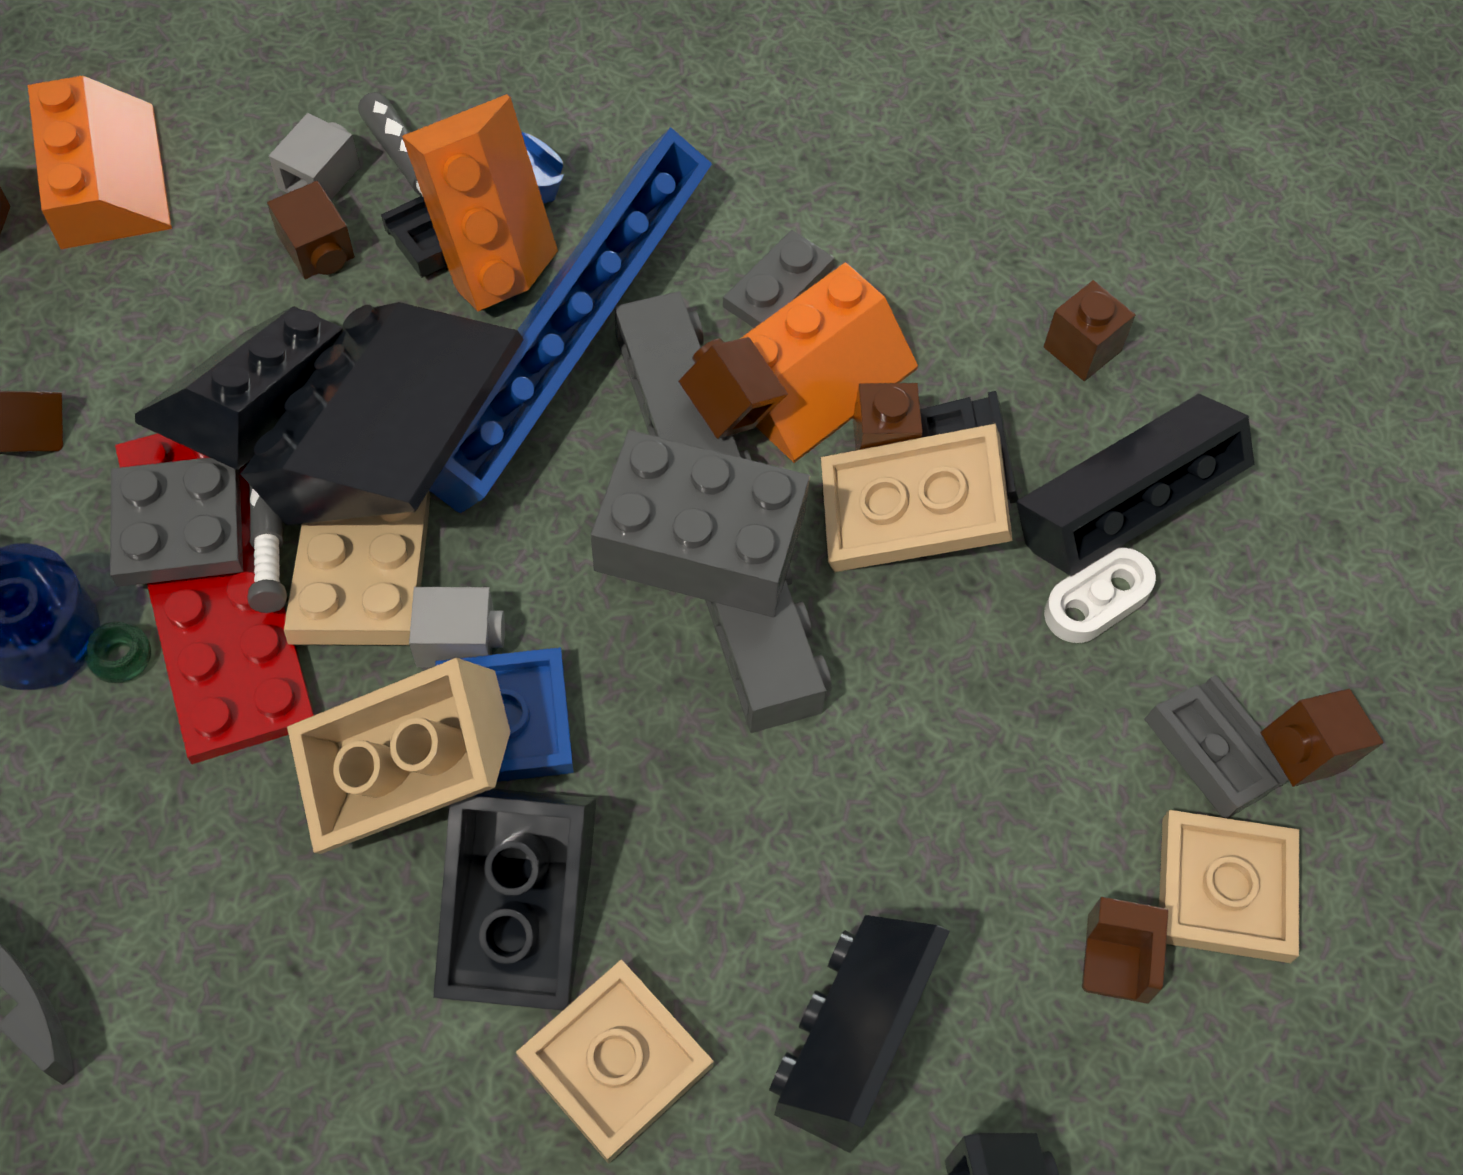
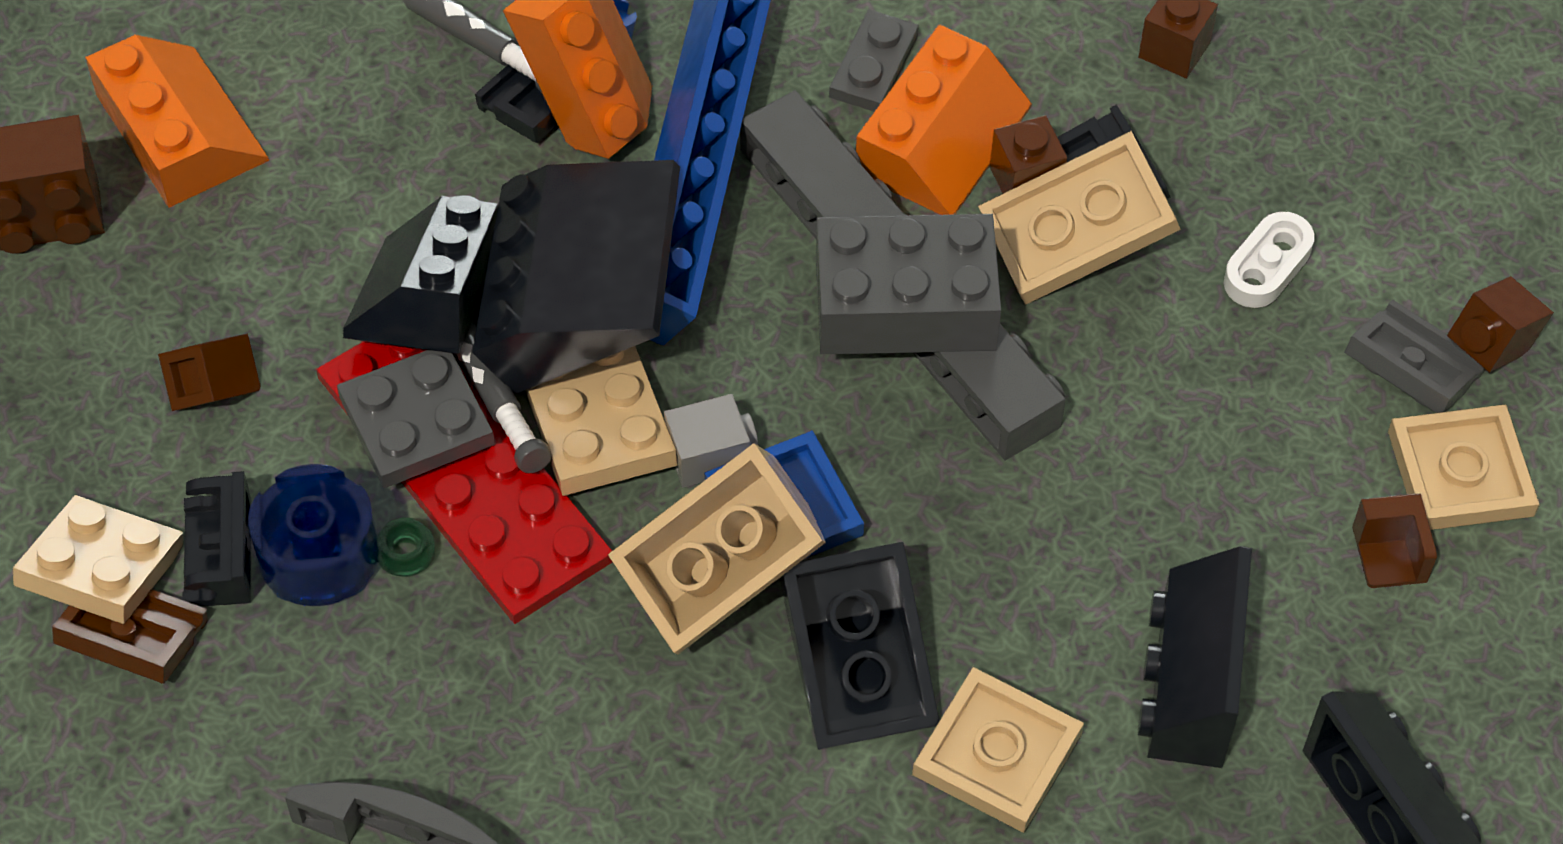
camera: 15 degrees left, 5 degrees down
(311, 230) = (415, 125): reddish brown brick -> none
(314, 153) = (388, 60): light grey brick -> none
(732, 386) = (884, 159): reddish brown brick -> none
(1135, 483) = (1267, 154): black brick -> none

